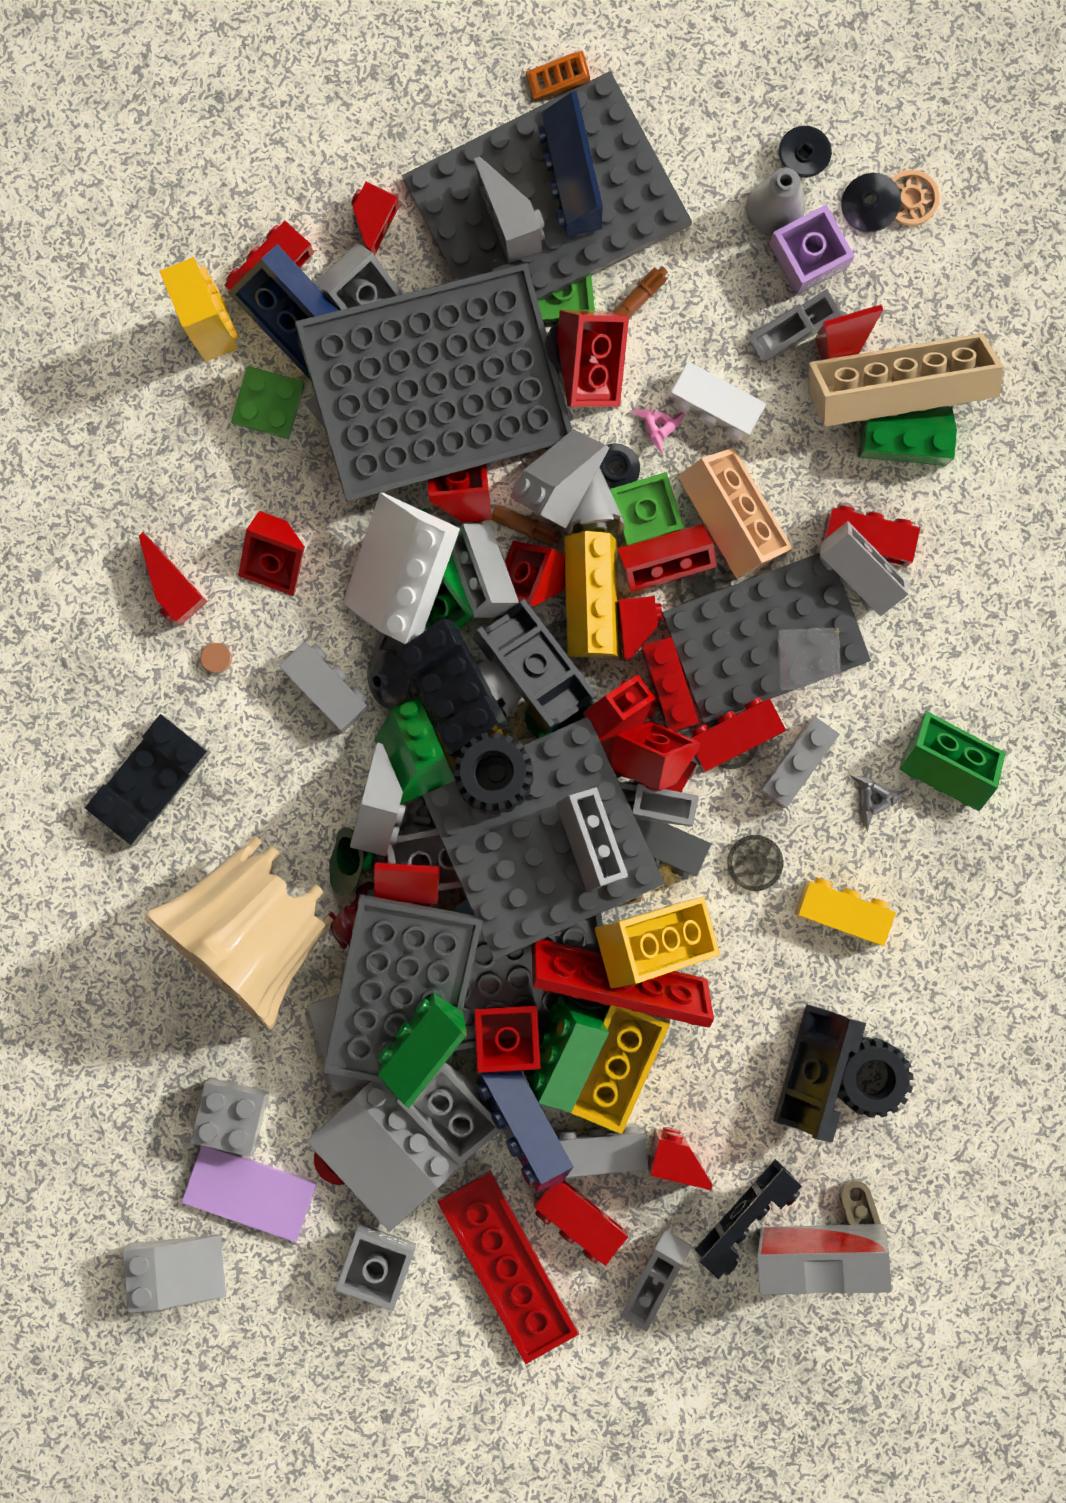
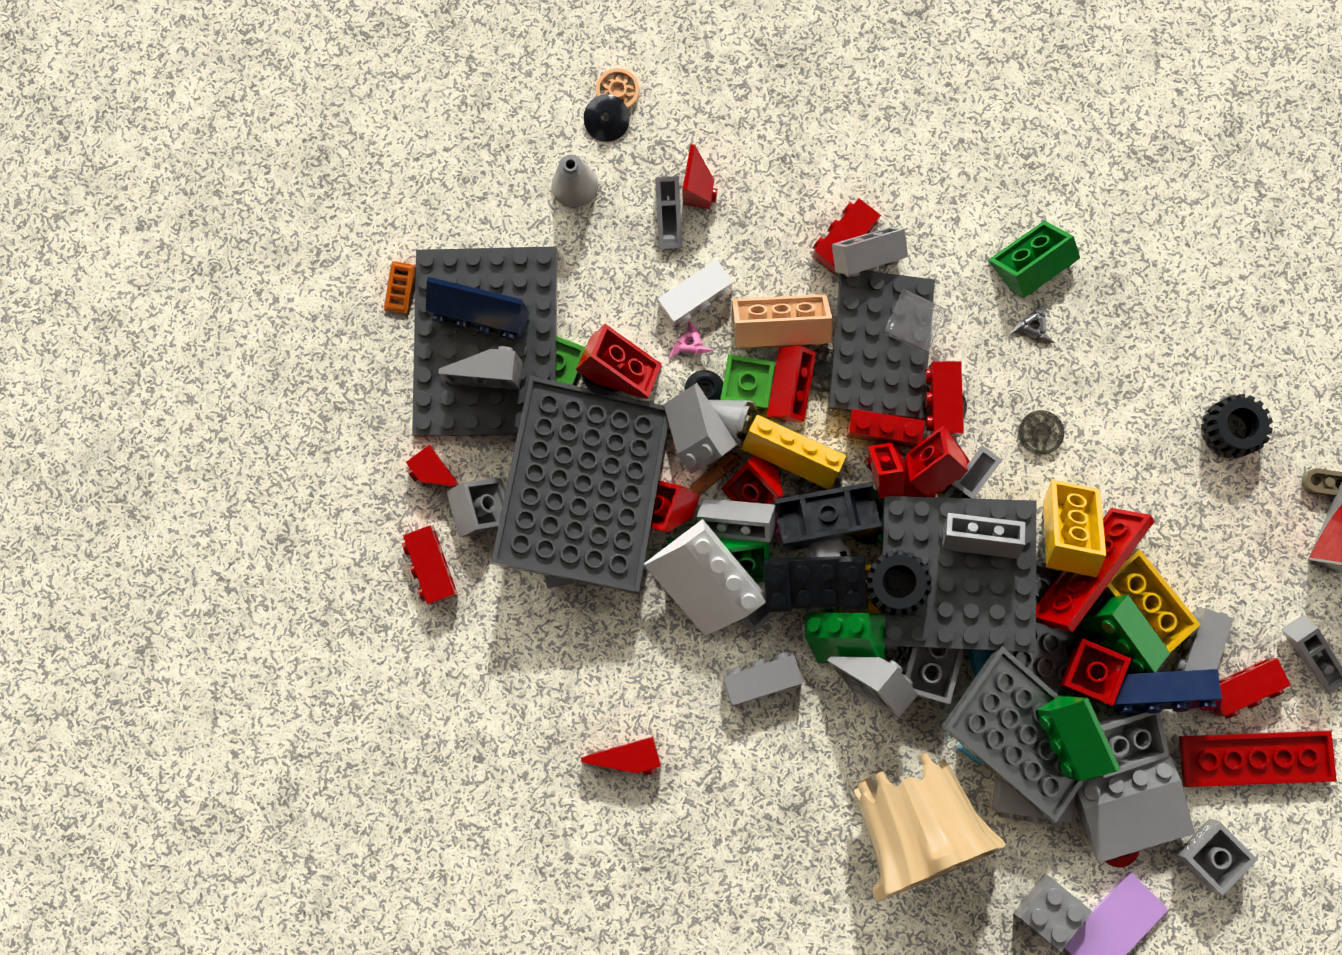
camera: 60 degrees left, 5 degrees down
(147, 780) = (767, 849): black piece -> none
(200, 308) = (441, 627): yellow brick -> none
(216, 658) = (699, 750): nougat tile -> none
(268, 402) = (528, 616): bright green plate -> none
(271, 554) = (644, 668): red slope -> none
(278, 295) = (465, 566): dark blue slope -> none
(344, 921) = (951, 749): dark red piece -> none
(348, 863) = (904, 730): dark green piece -> none
(388, 679) = (781, 629): black dish -> none
(407, 883) = (945, 687): red slope -> none
(637, 622) = (828, 429): red slope -> none
(642, 292) = (588, 307): dark orange piece -> none
(674, 847) = (1007, 481): dark grey brick -> none
(675, 1161) = (1236, 596): red slope -> none
(717, 1247) = (1294, 558): black piece -> none
(799, 762) = (985, 365): light grey brick -> none
(811, 249) = (621, 174): lavender brick -> none
(813, 140) = (552, 135): black piece -> none
(817, 1072) = (1217, 461): black piece -> none
(845, 911) = (1107, 386): yellow brick -> none
(904, 379) = (748, 156): tan brick -> none
(911, 437) = (783, 173): green slope -> none

